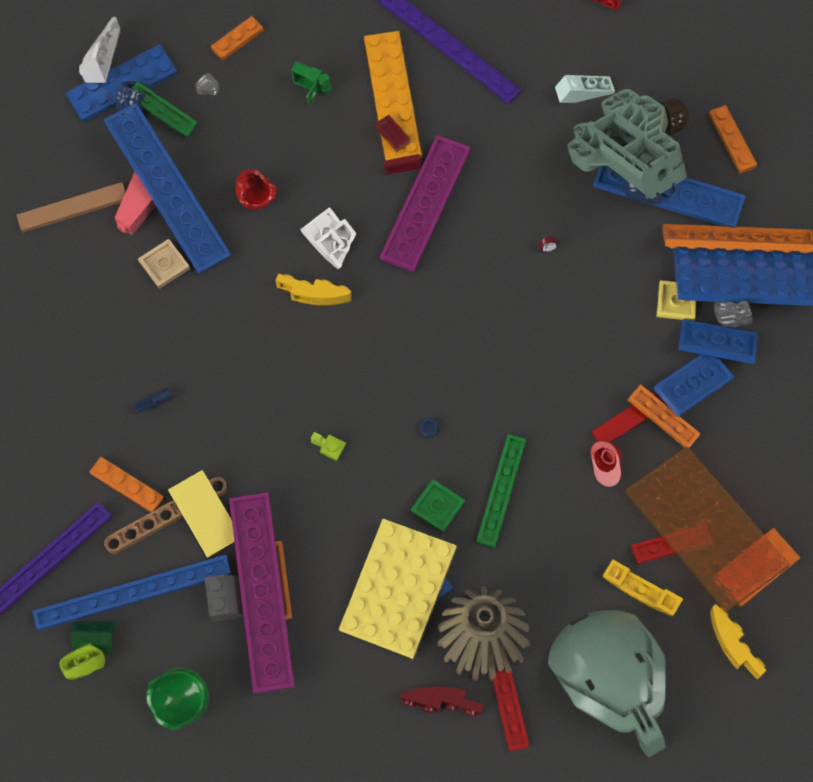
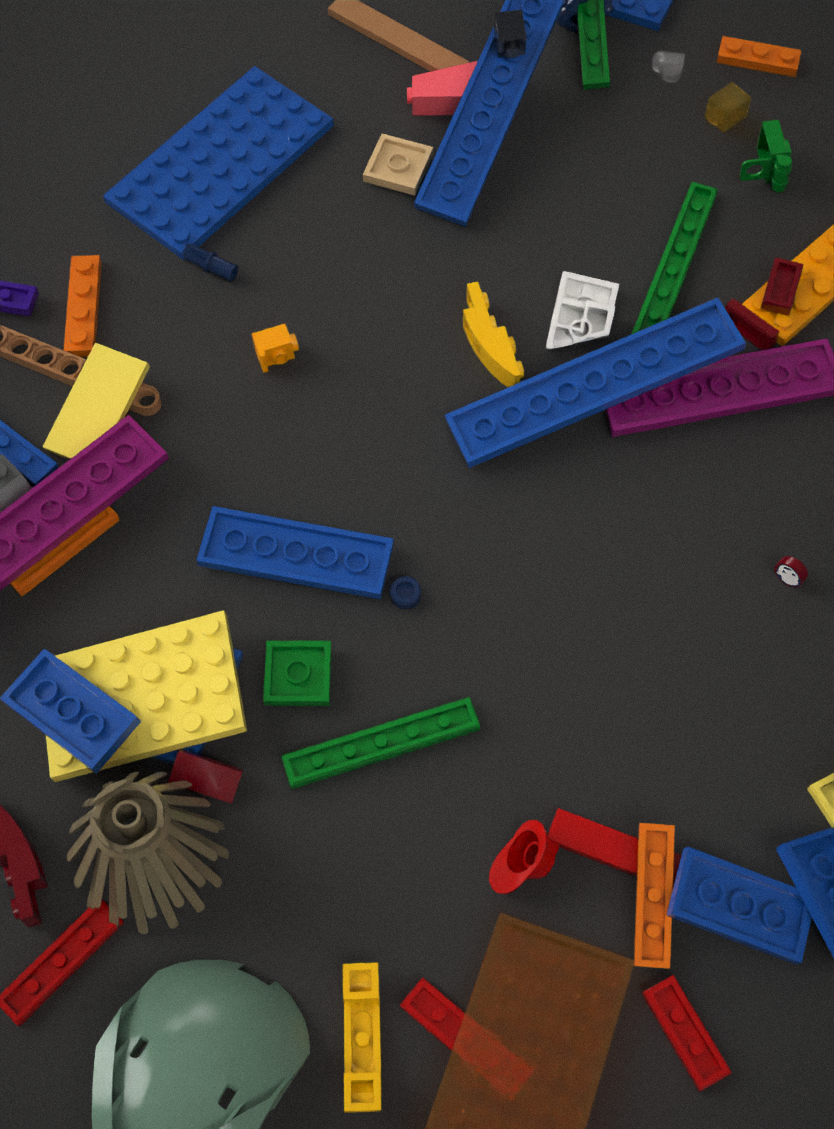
camera: 55 degrees right, 5 degrees down
(83, 355) = (218, 161): none -> blue plate
(142, 151) = (510, 33): none -> black brick
(235, 401) = (274, 346): none -> light orange brick
(254, 189) = (566, 189): red hair -> none
(260, 77) = (727, 107): none -> clear yellow brick
(331, 446) = (292, 492): lime plate -> none
(340, 179) = (677, 256): none -> green tile
(368, 466) = (296, 552): none -> blue plate
(382, 260) = (594, 382): none -> blue plate
(386, 625) = (70, 710): none -> blue plate
(466, 579) = (206, 775): none -> dark red tile
(731, 447) = (686, 1033): none -> red tile

